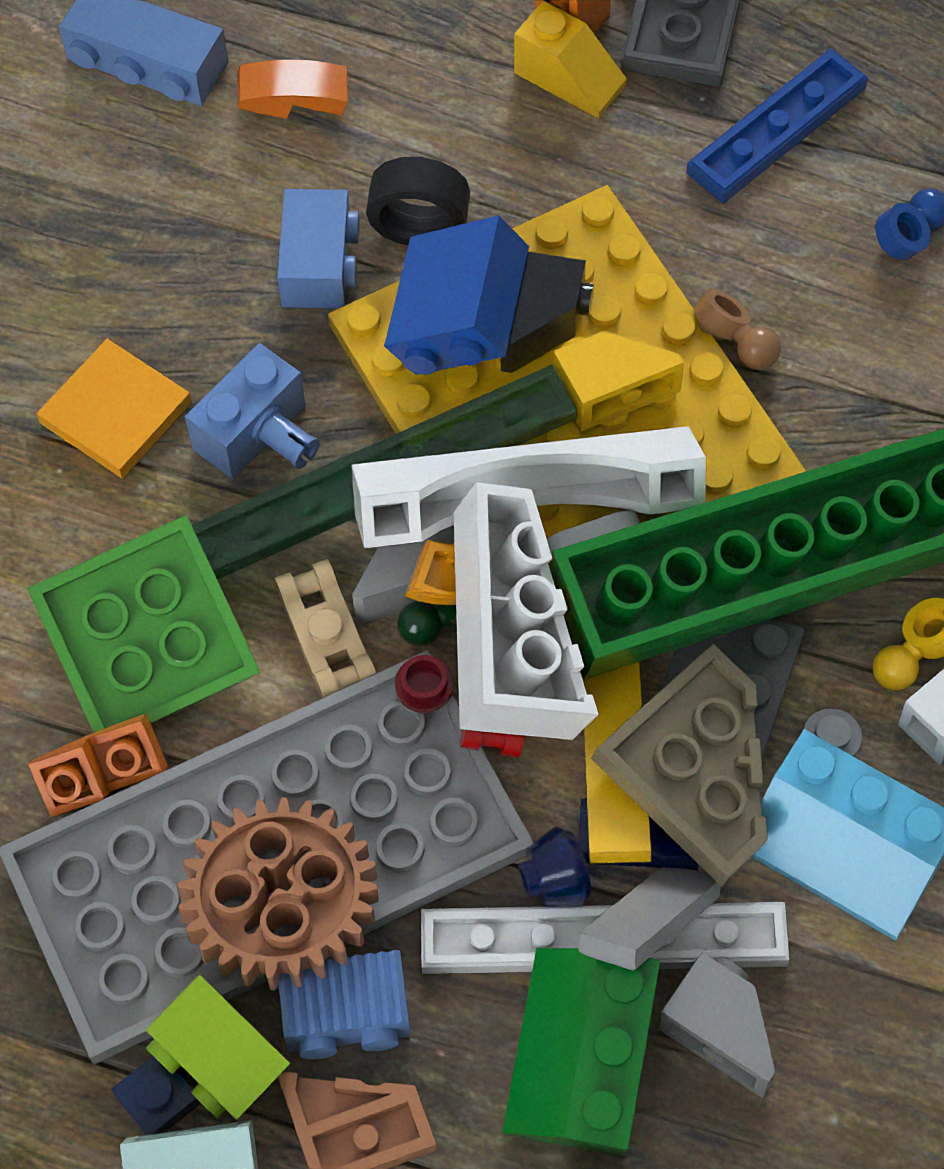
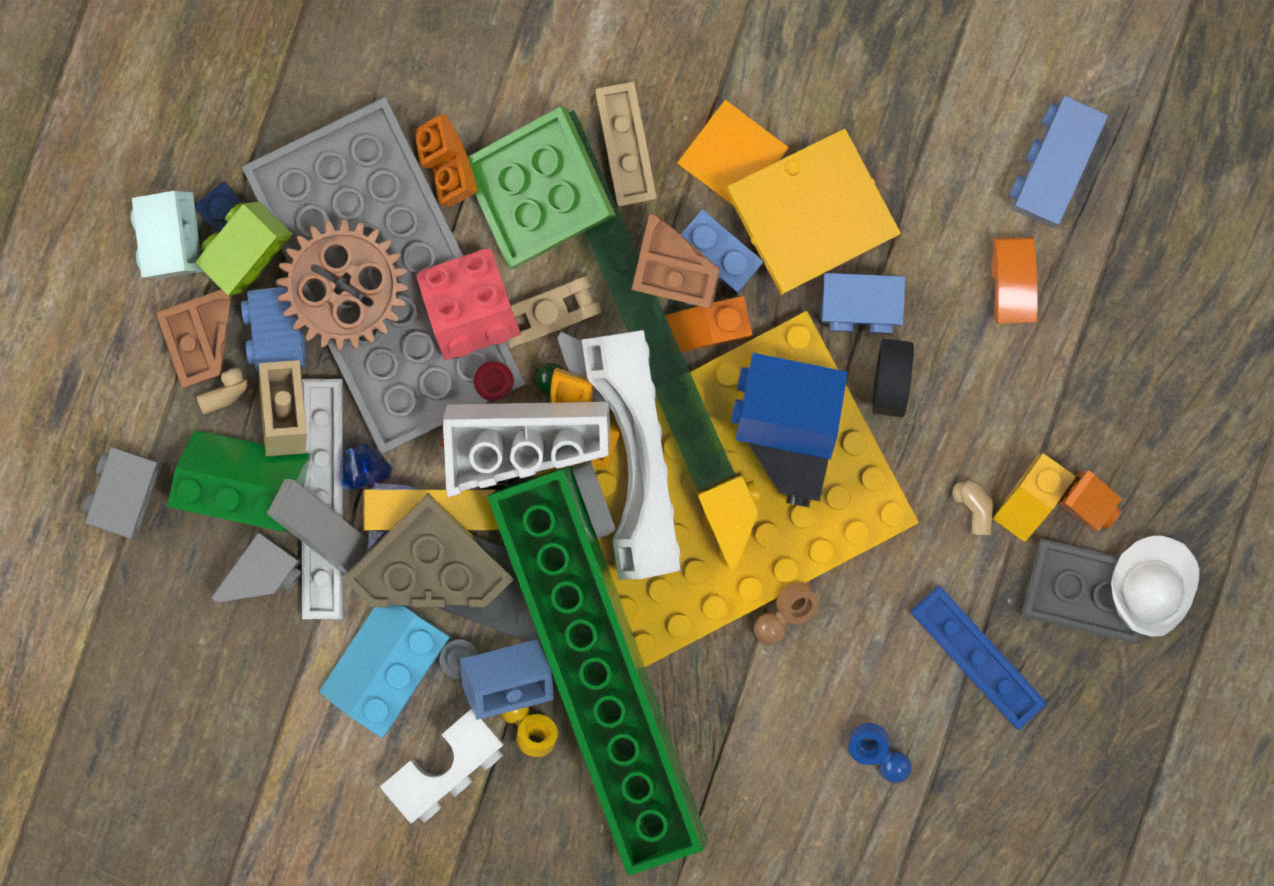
camera: 90 degrees right, 25 degrees up
(81, 532) = (626, 144): none -> tan plate
(194, 302) = (812, 211): none -> yellow piece
(264, 442) = (674, 267): none -> nougat wing
(309, 714) = (467, 304): none -> coral bracket
(342, 406) = (709, 327): none -> orange slope
(449, 1089) = (224, 396): none -> tan arm
(467, 978) = (282, 408): none -> tan brick
(583, 122) = (978, 502): none -> tan arm
(858, 656) = (506, 679): none -> medium blue brick

